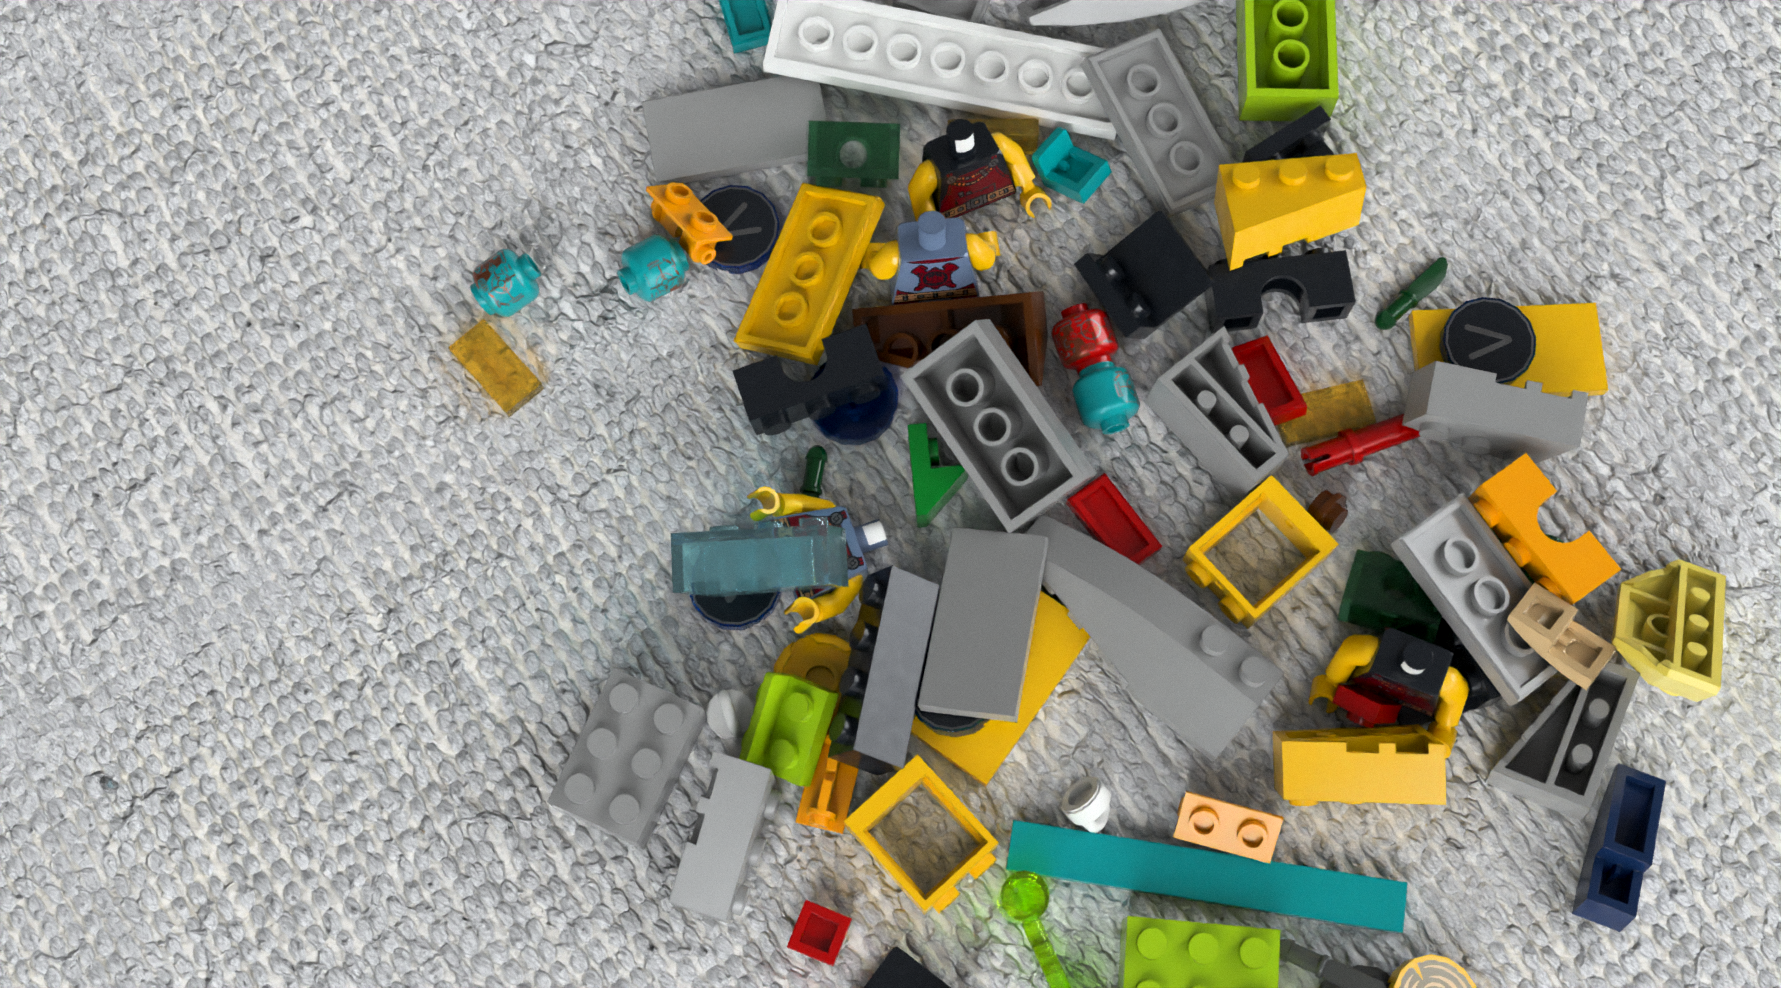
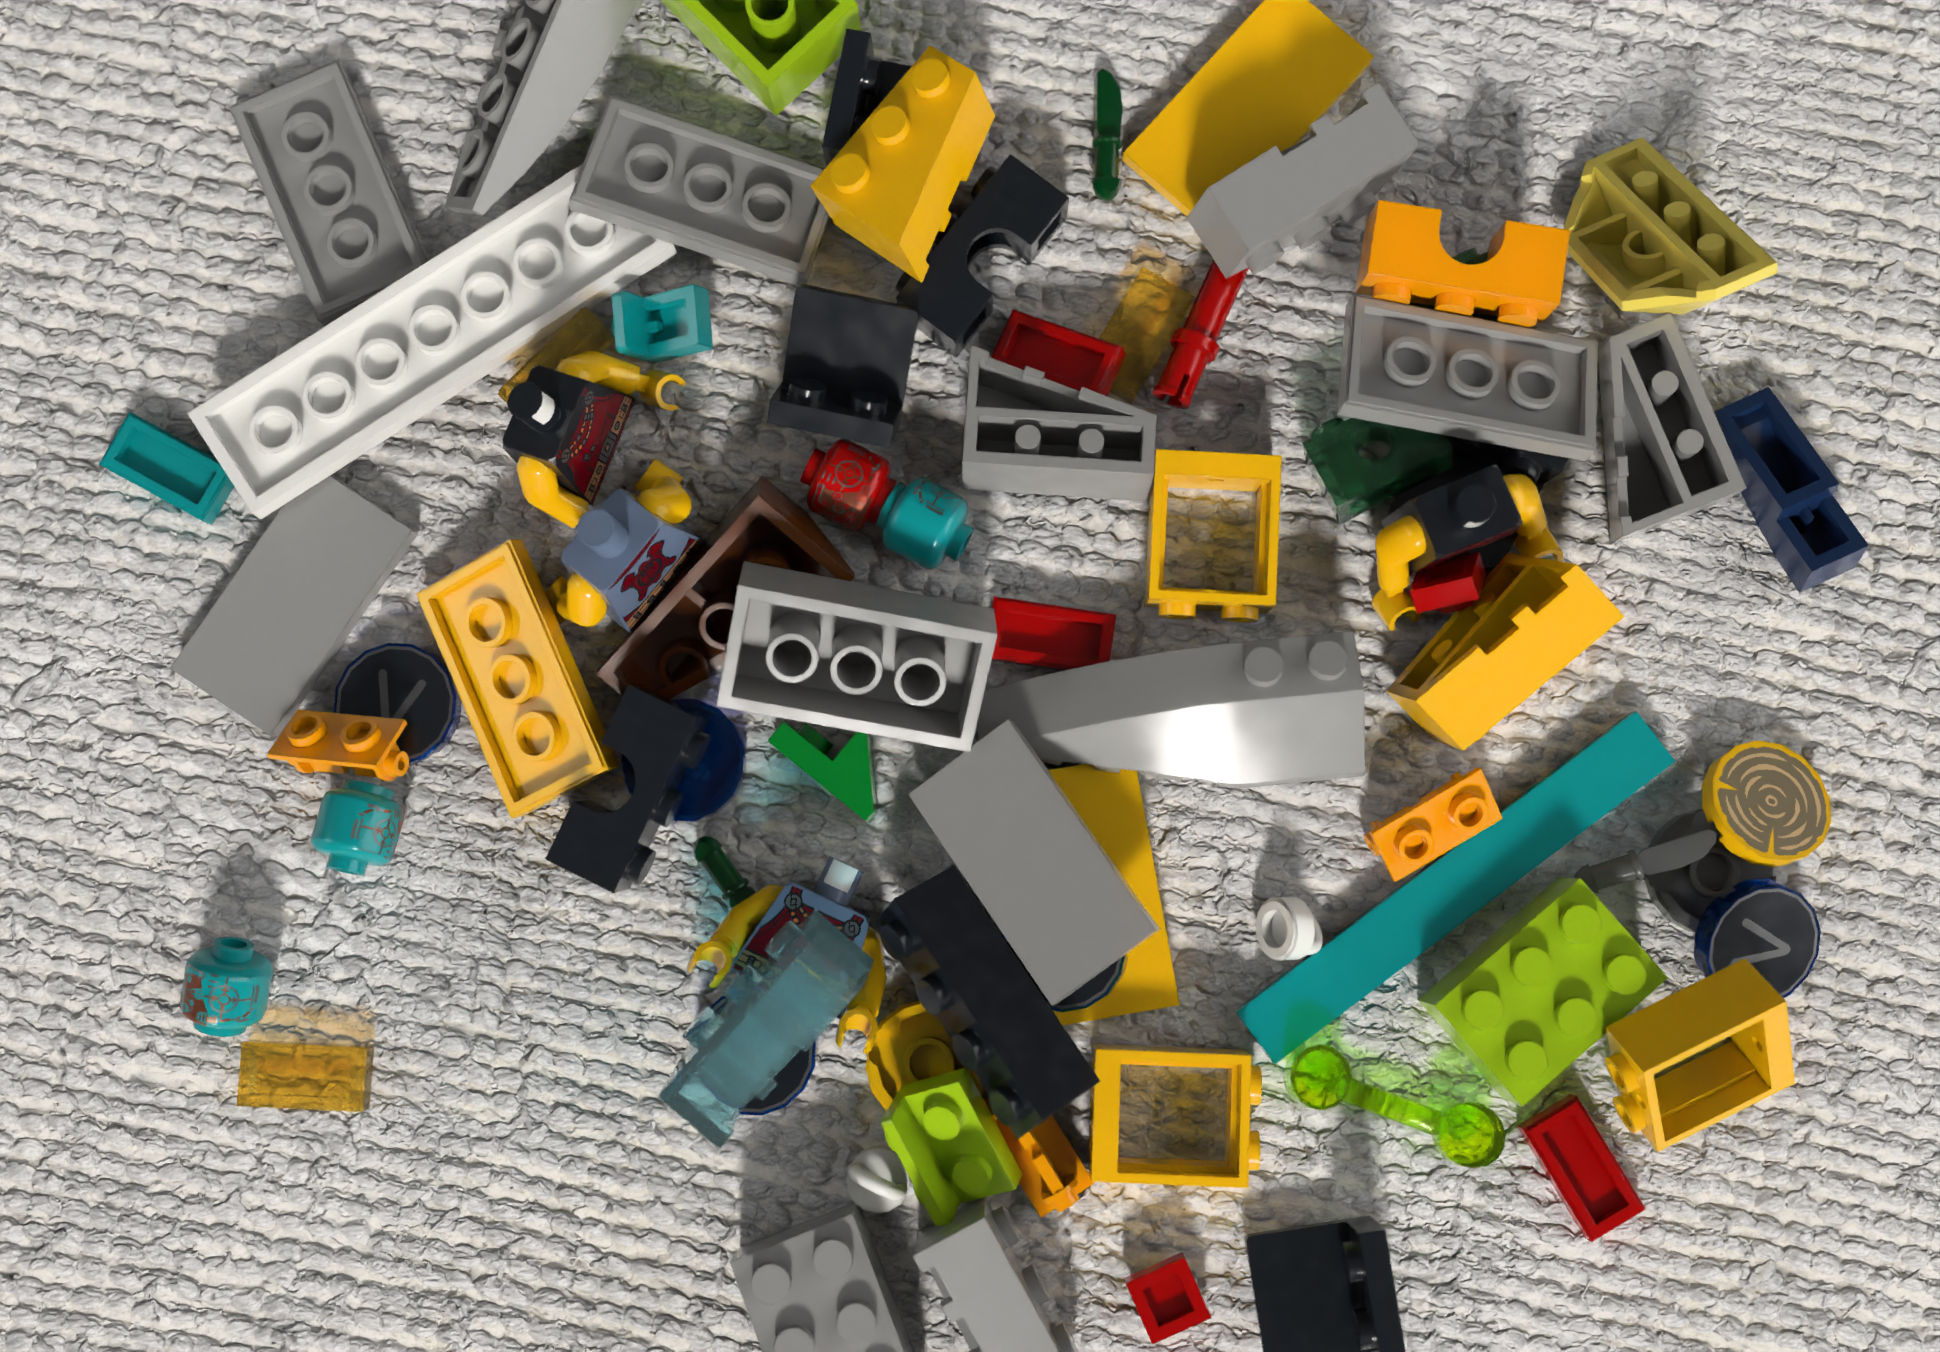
camera: 40 degrees left, 10 degrees up
(878, 142) = (397, 525): clear green brick -> none
(1329, 510) = (1235, 429): reddish brown plate -> none
(1489, 338) = (1224, 115): black tile -> none
(1550, 630) = (1564, 352): tan slope -> none

